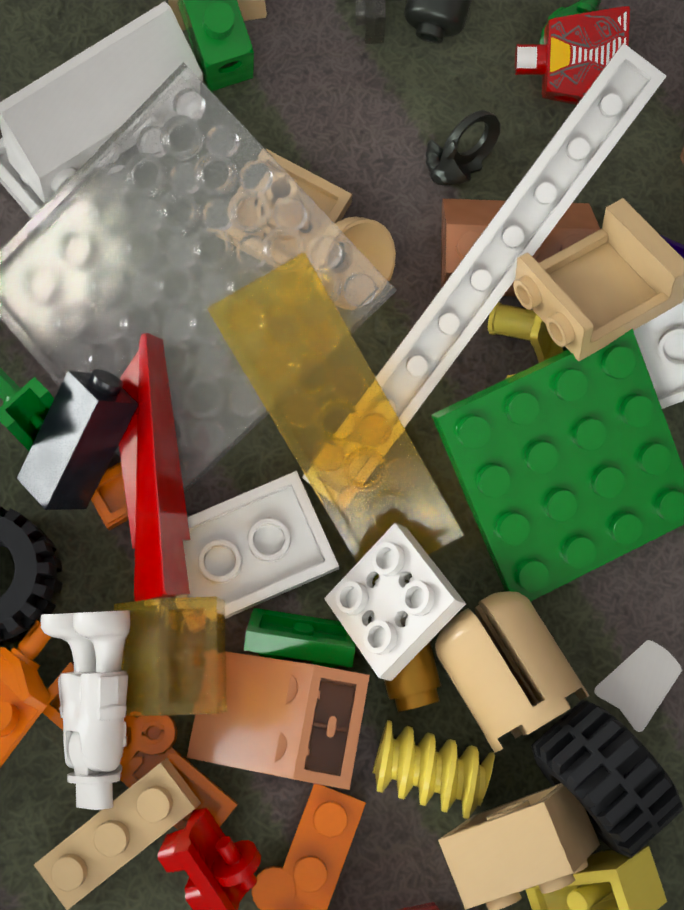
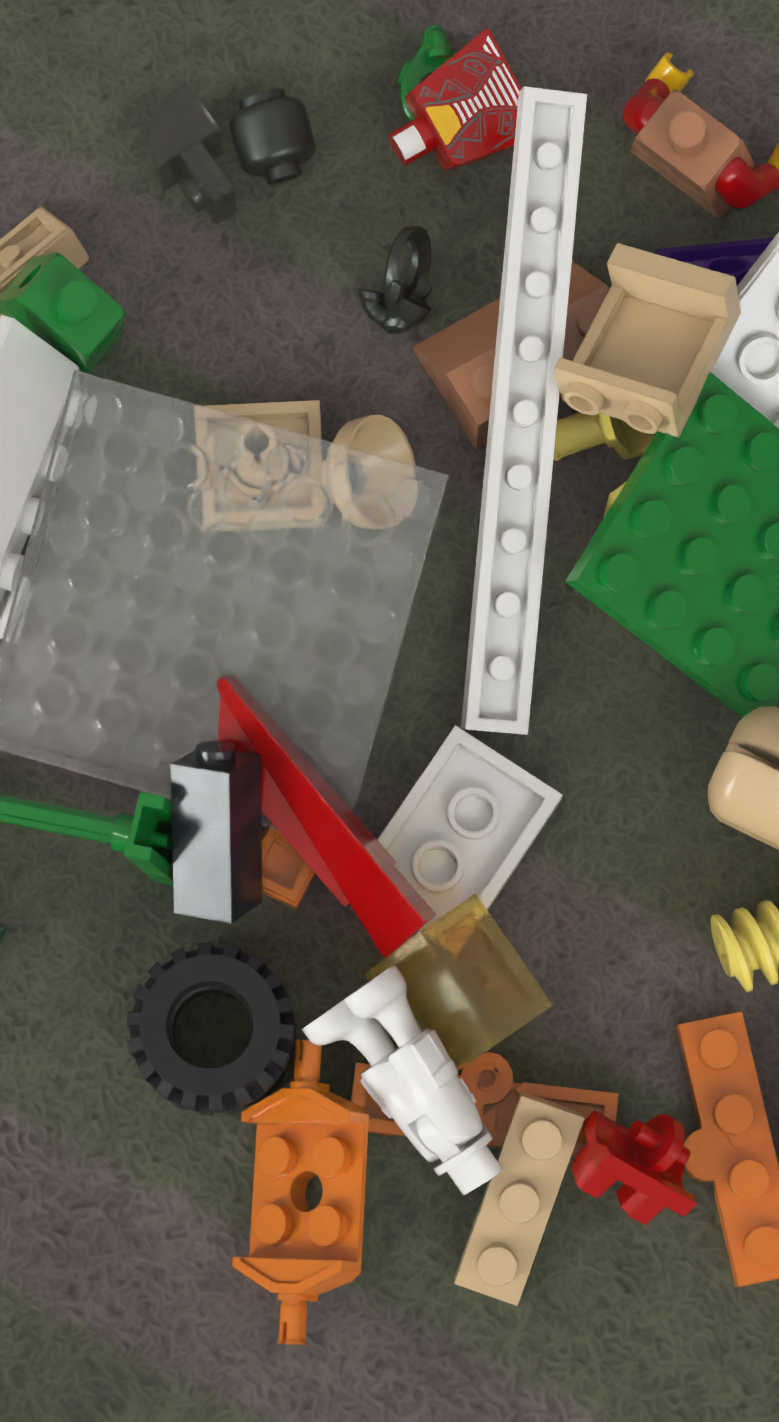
camera: 30 degrees left, 0 degrees up
(285, 720) = (614, 980): nougat slope -> none
(299, 637) = (587, 883): green plate -> none
(332, 409) = (471, 644): clear yellow plate -> none
(416, 682) = (699, 854): pearl gold brick -> none
(420, 605) = (678, 778): white plate -> none

